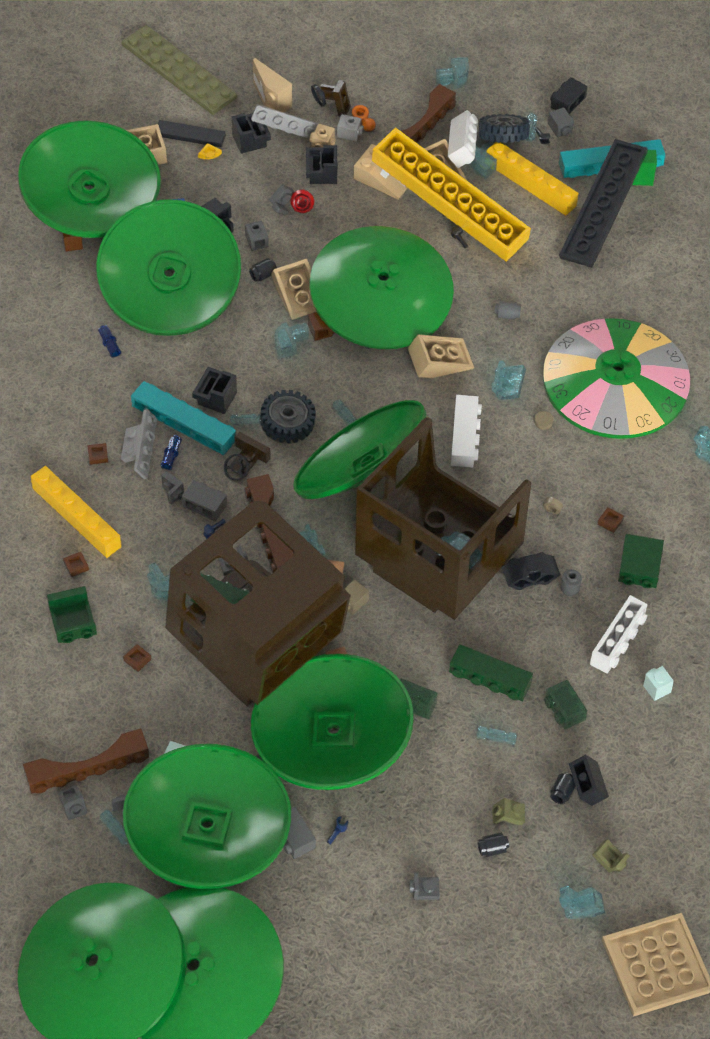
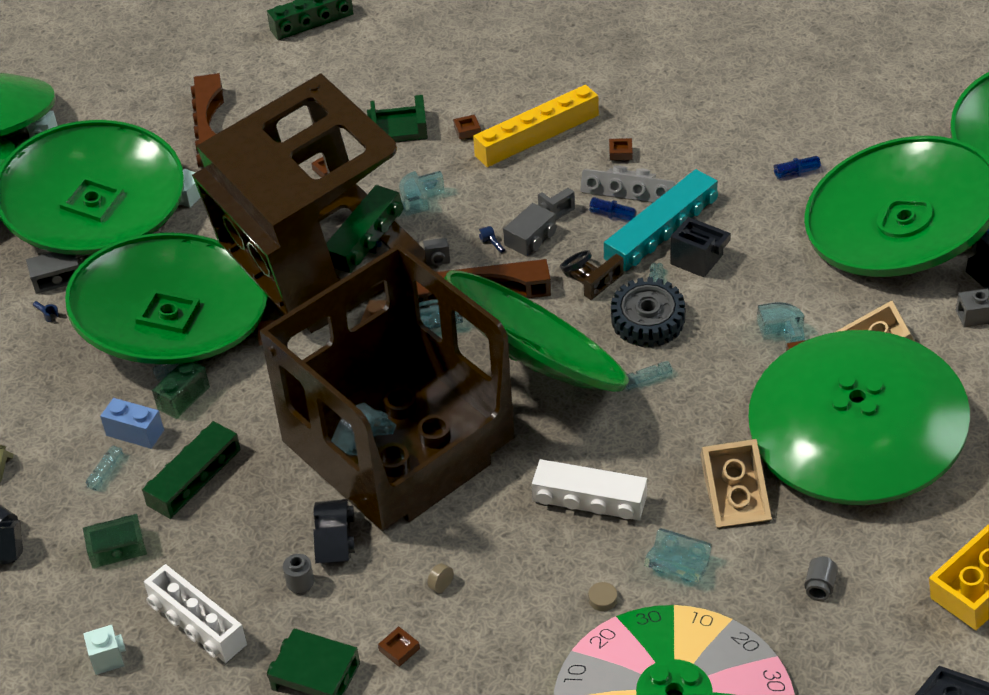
camera: 105 degrees right, 10 degrees down
(72, 802) = (170, 111): dark grey bracket -> none
(262, 269) = (911, 309): black brick -> none
(455, 722) = (132, 423): none -> medium blue brick

